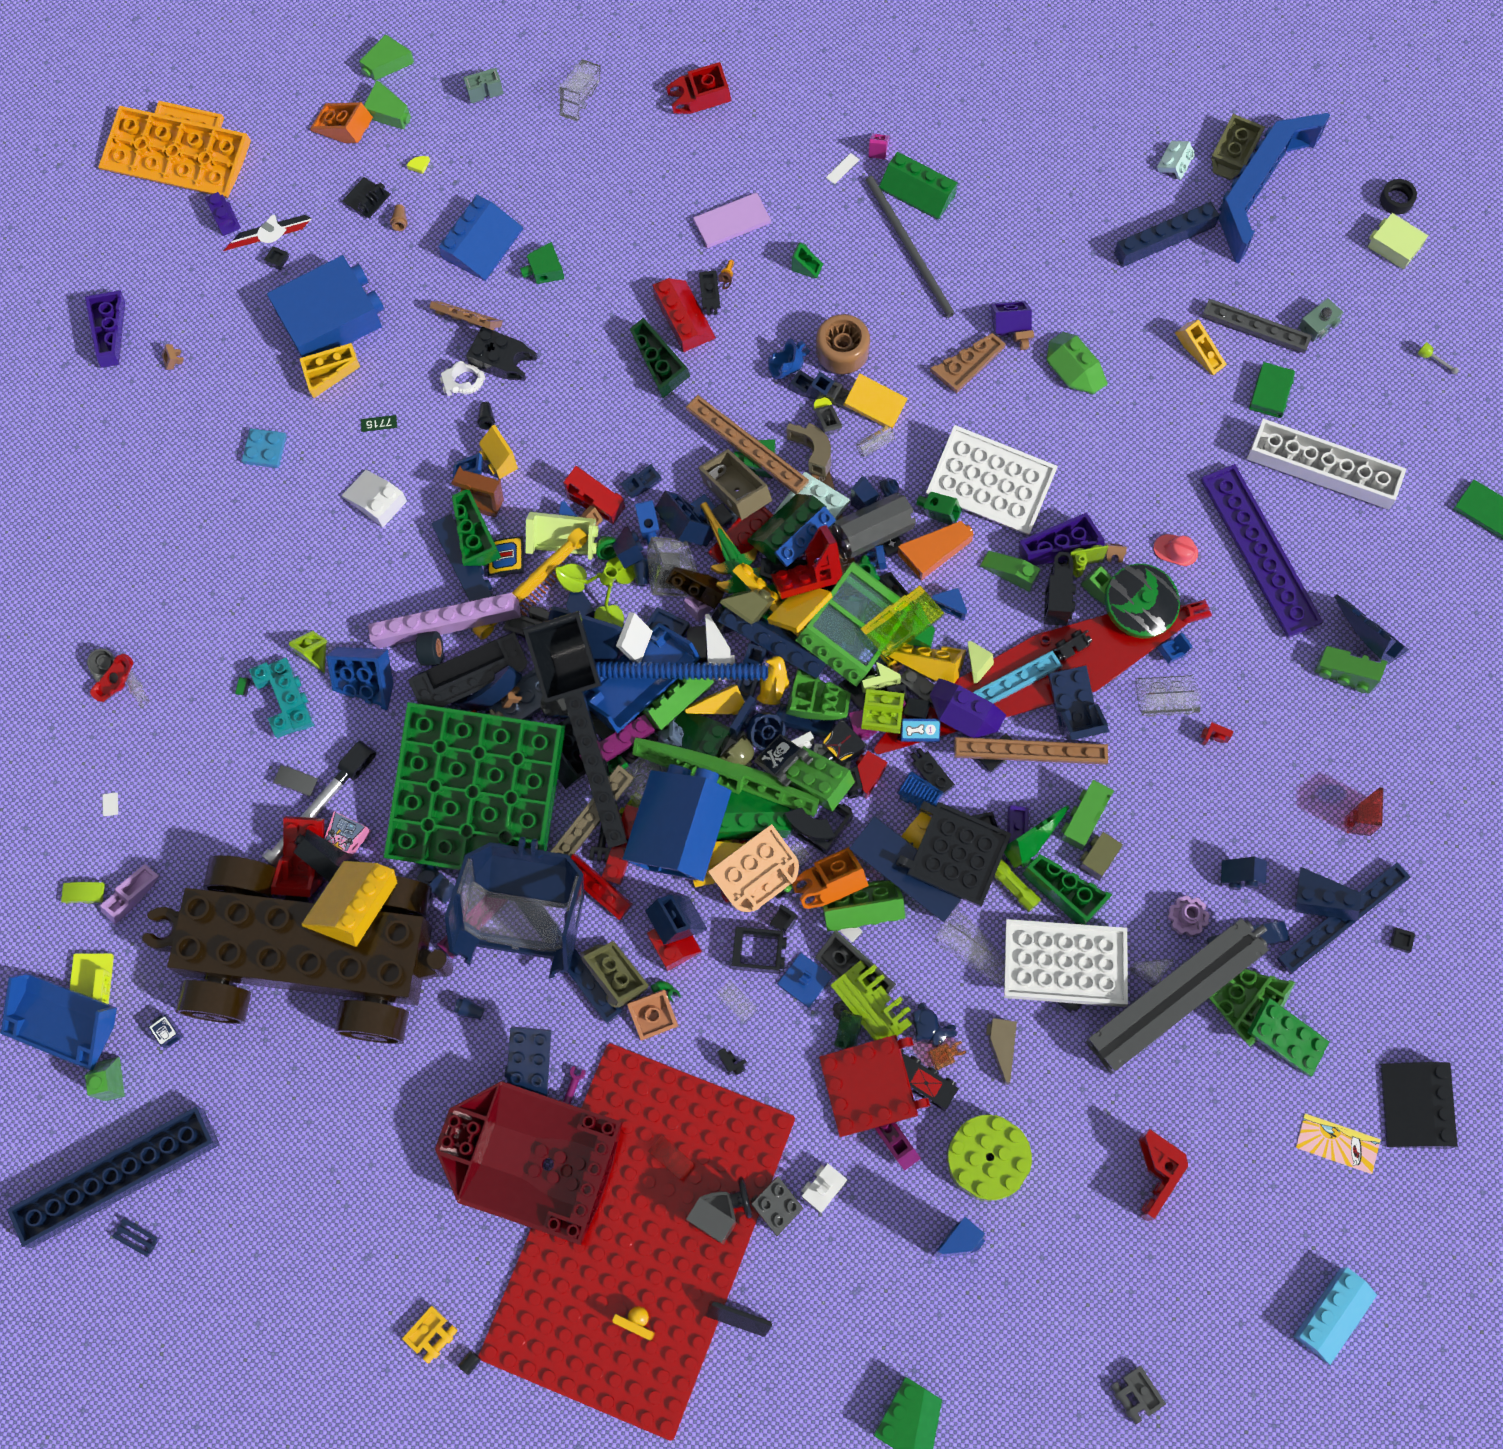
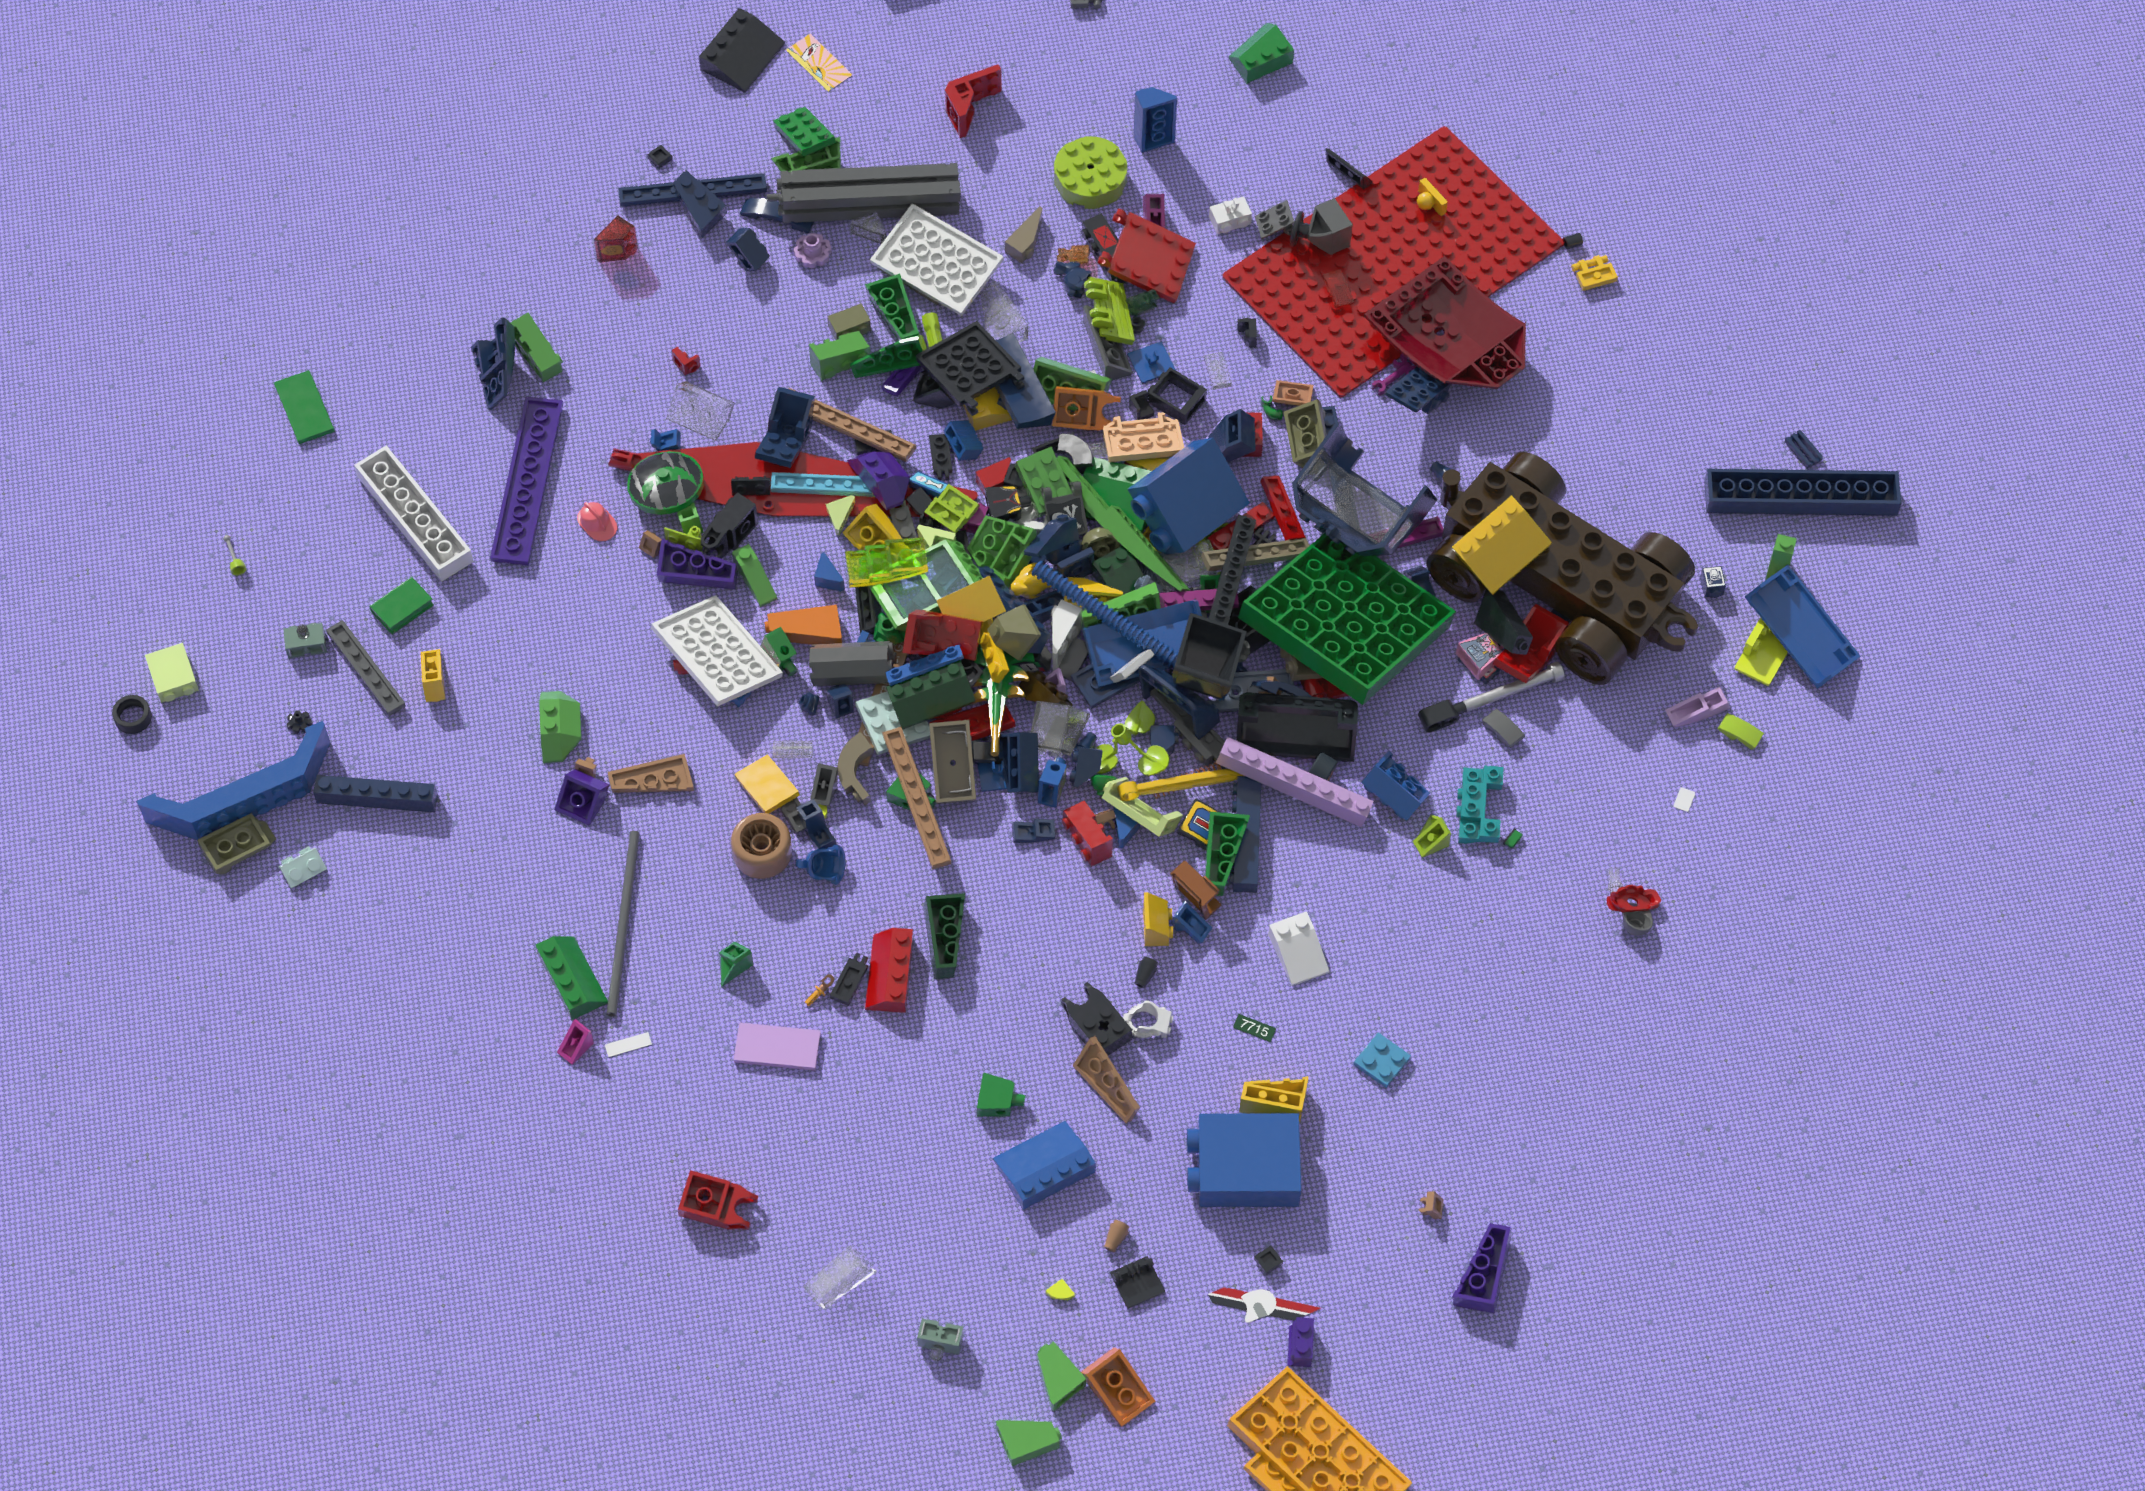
camera: 155 degrees left, 10 degrees down
(773, 718) = (1054, 536): none -> dark blue slope
(1271, 262) = (298, 721): none -> black plant

